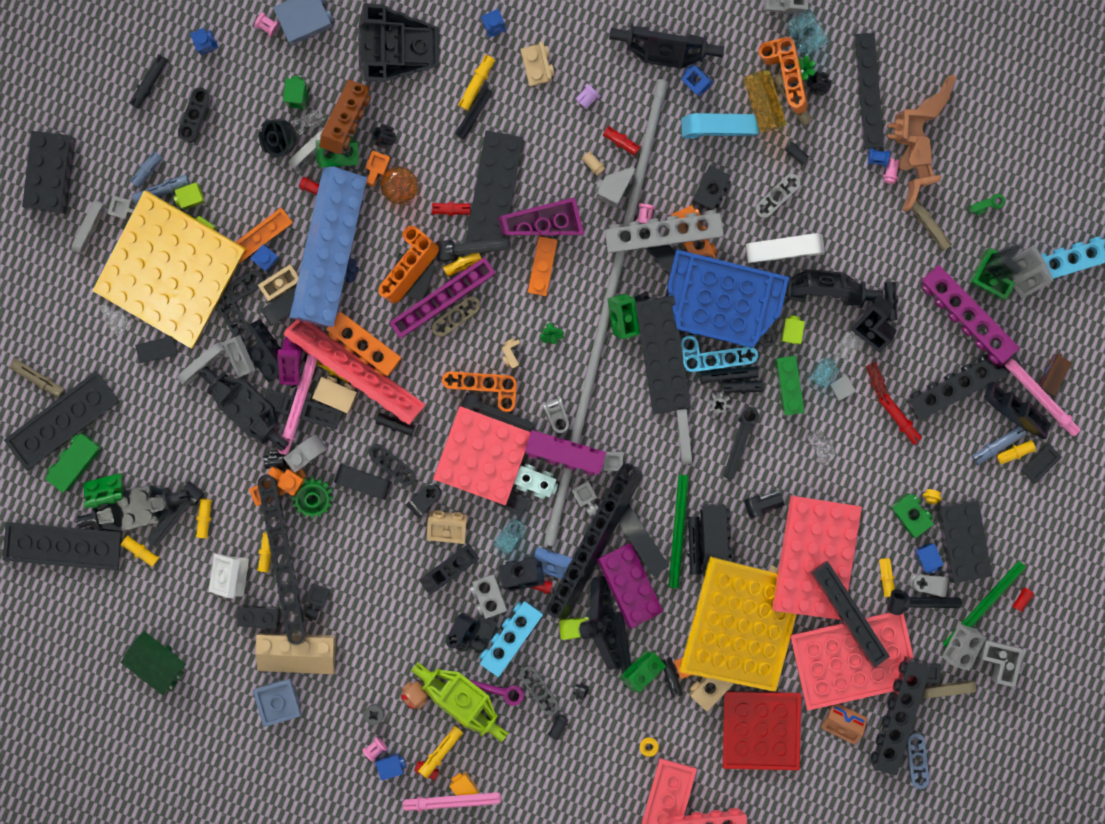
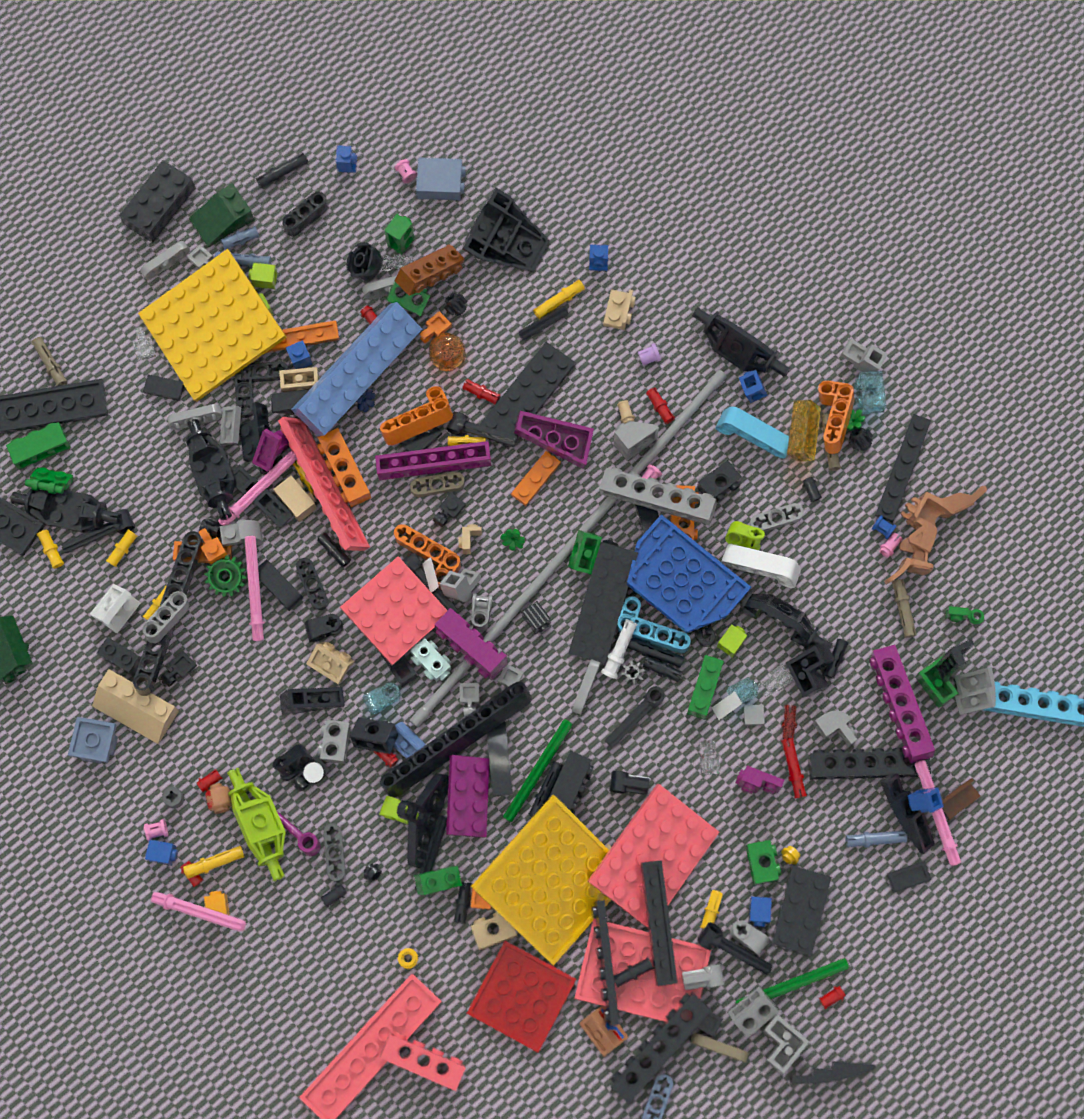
camera: 35 degrees right, 15 degrees down
(116, 156) = (221, 215): none -> dark green slope
(278, 576) = (165, 626): none -> light grey beam
(359, 520) = (254, 588): none -> bright pink axle
(397, 683) = (210, 779): none -> red pin
(480, 331) = (450, 506): none -> black plate
(485, 633) = (313, 772): none -> white tile
(496, 406) = (430, 575): none -> white sticker
(497, 665) = (309, 809): medium azure brick -> none
(528, 402) = (459, 585): none -> light grey brick
(609, 397) = (536, 618): none -> black brick
(698, 398) = (616, 657): none -> white pin
(757, 230) = (744, 535): none -> lime piece
(816, 392) = (726, 705): none -> white sticker
(816, 663) = (603, 954): none -> black plate
(847, 665) = (633, 972): none -> black pin
(873, 449) = (752, 779): none -> magenta plate
(913, 637) = (707, 977): none -> light grey piece
(917, 359) = (836, 722): none -> light grey brick
(1016, 452) = (889, 853): yellow axle -> none
(1030, 394) = (926, 800): none -> blue brick
(1057, 660) = (838, 1072): none -> black slope

